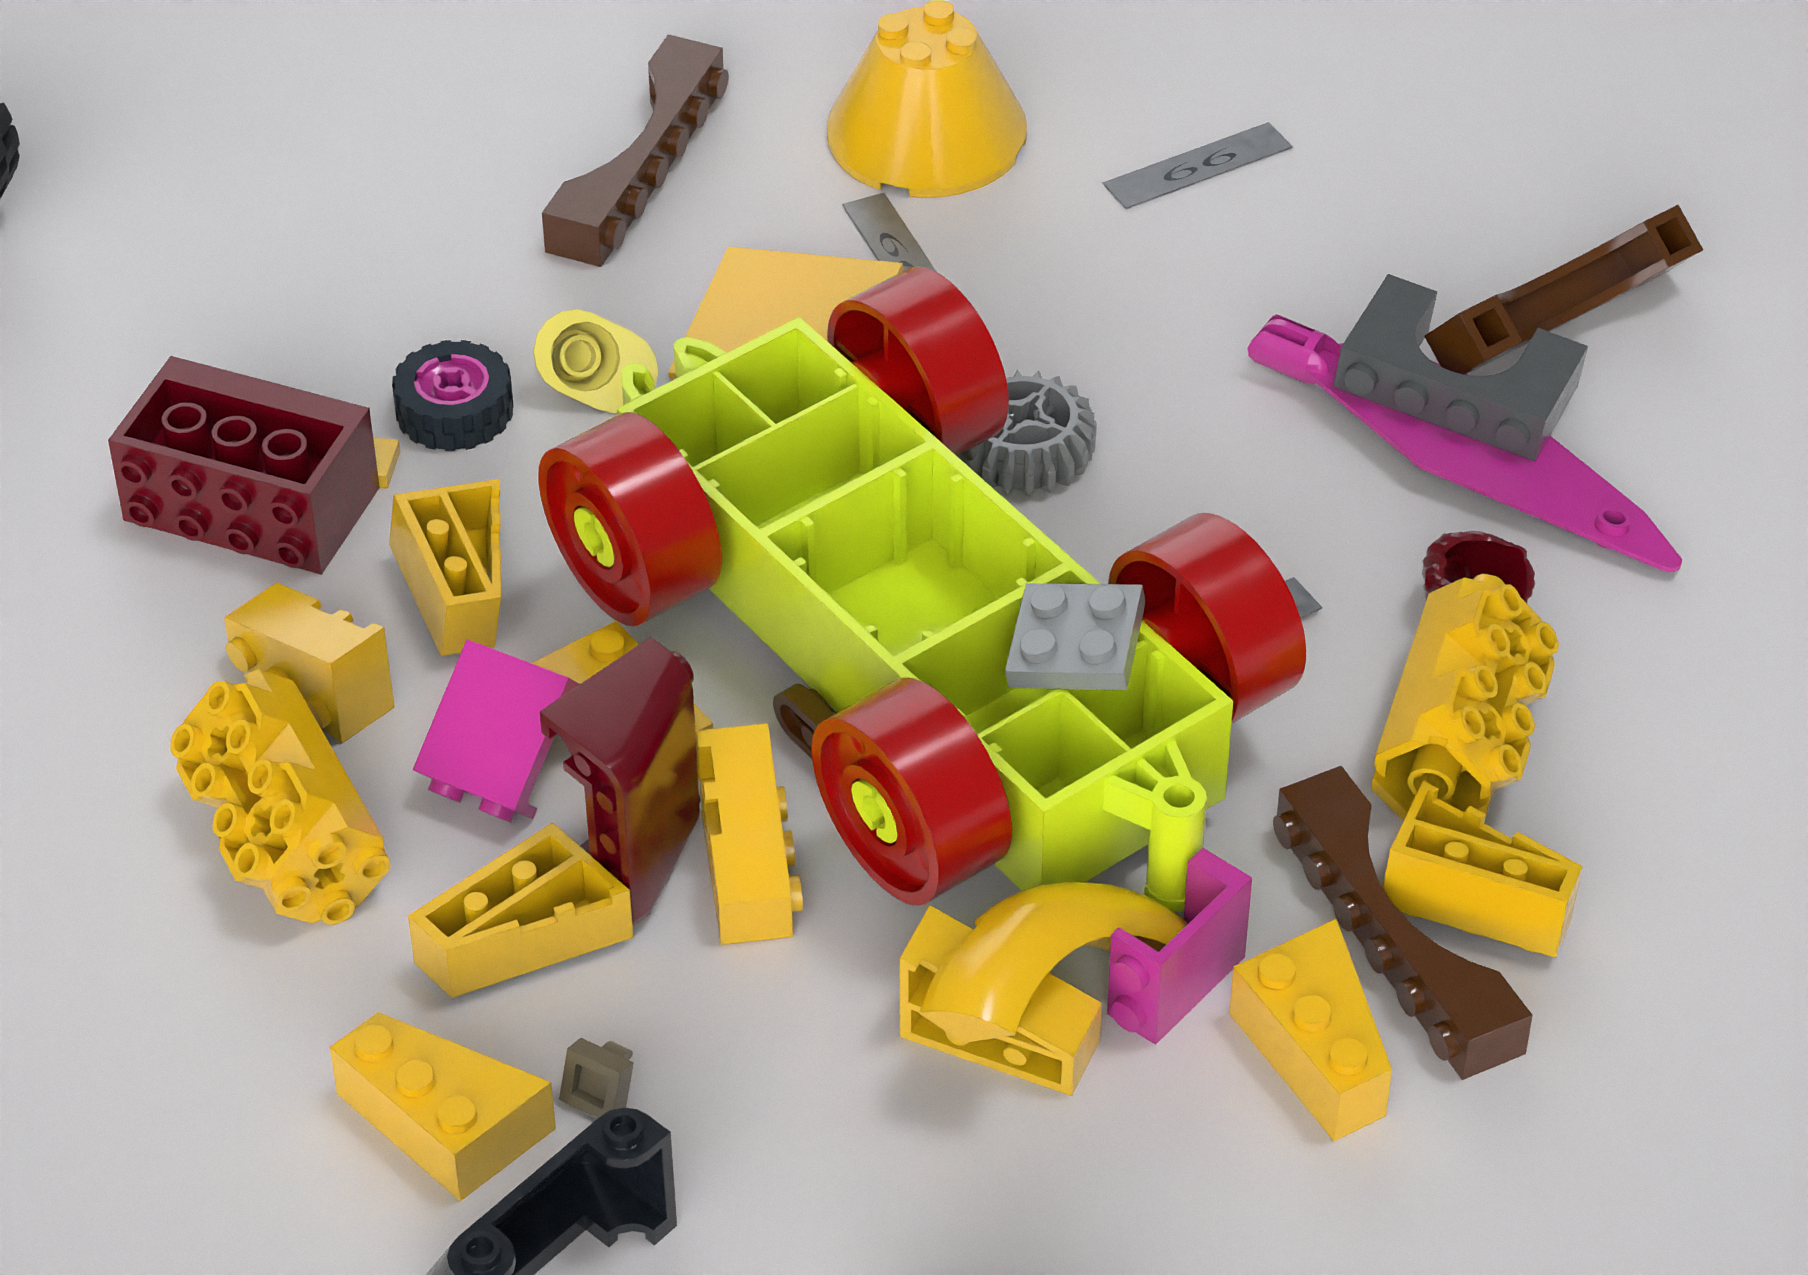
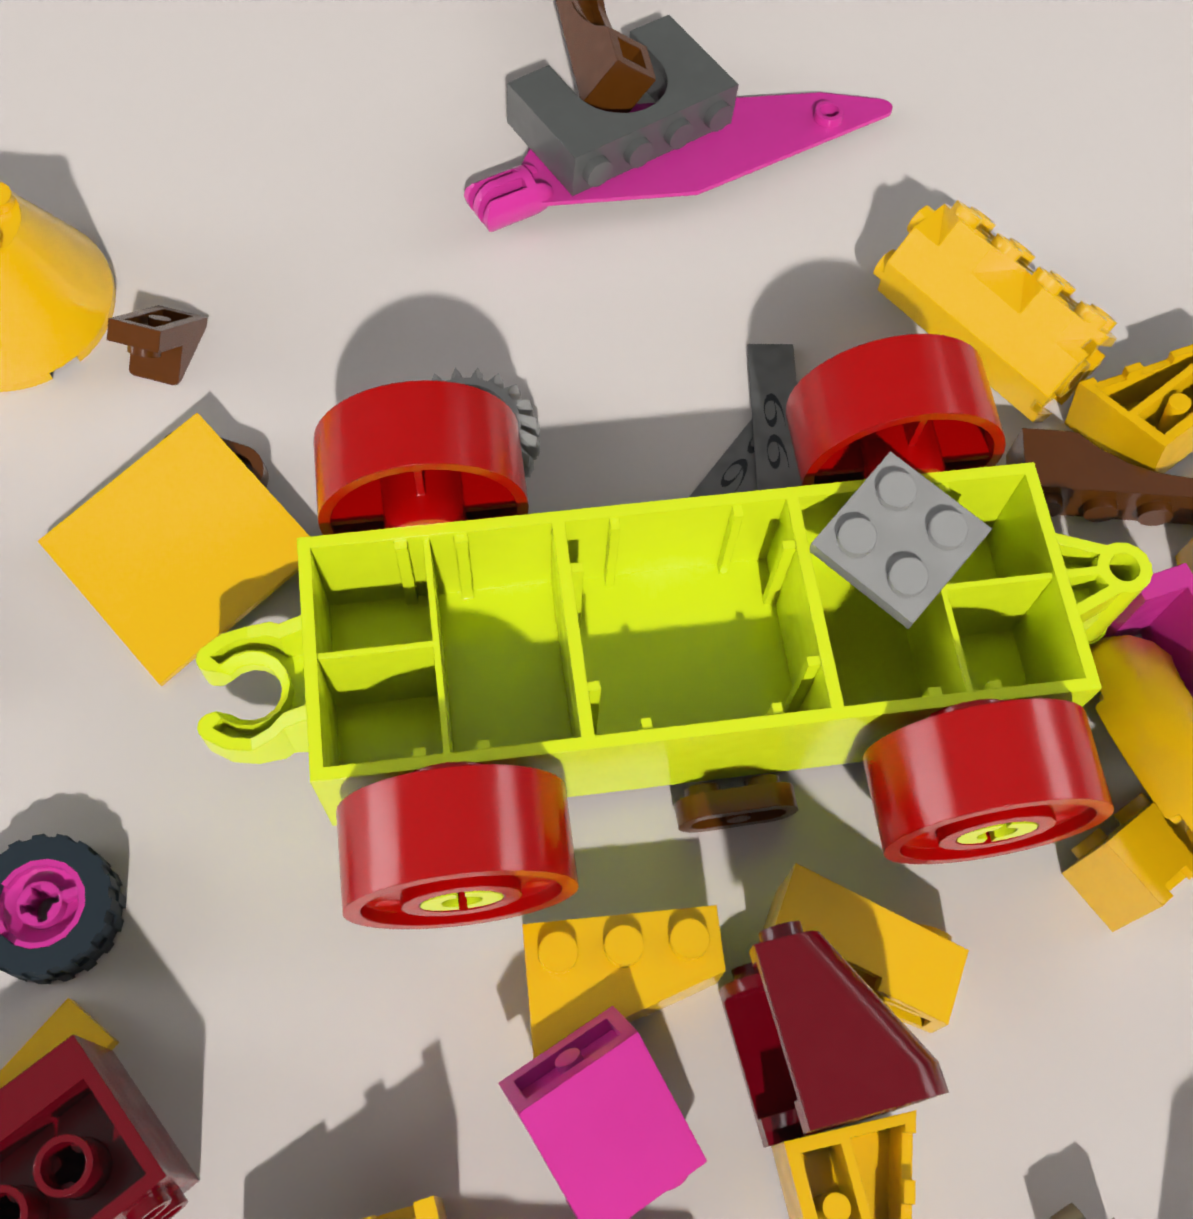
camera: 65 degrees left, 20 degrees up
(452, 560) = (313, 1041): yellow wedge -> none
(586, 357) = (115, 747): light yellow piece -> none
(886, 232) = (153, 408): flat silver sticker -> none
(959, 218) = (158, 341): none -> reddish brown slope
(1197, 165) = (219, 143): flat silver sticker -> none
(1473, 554) = (855, 227): dark red hair -> none

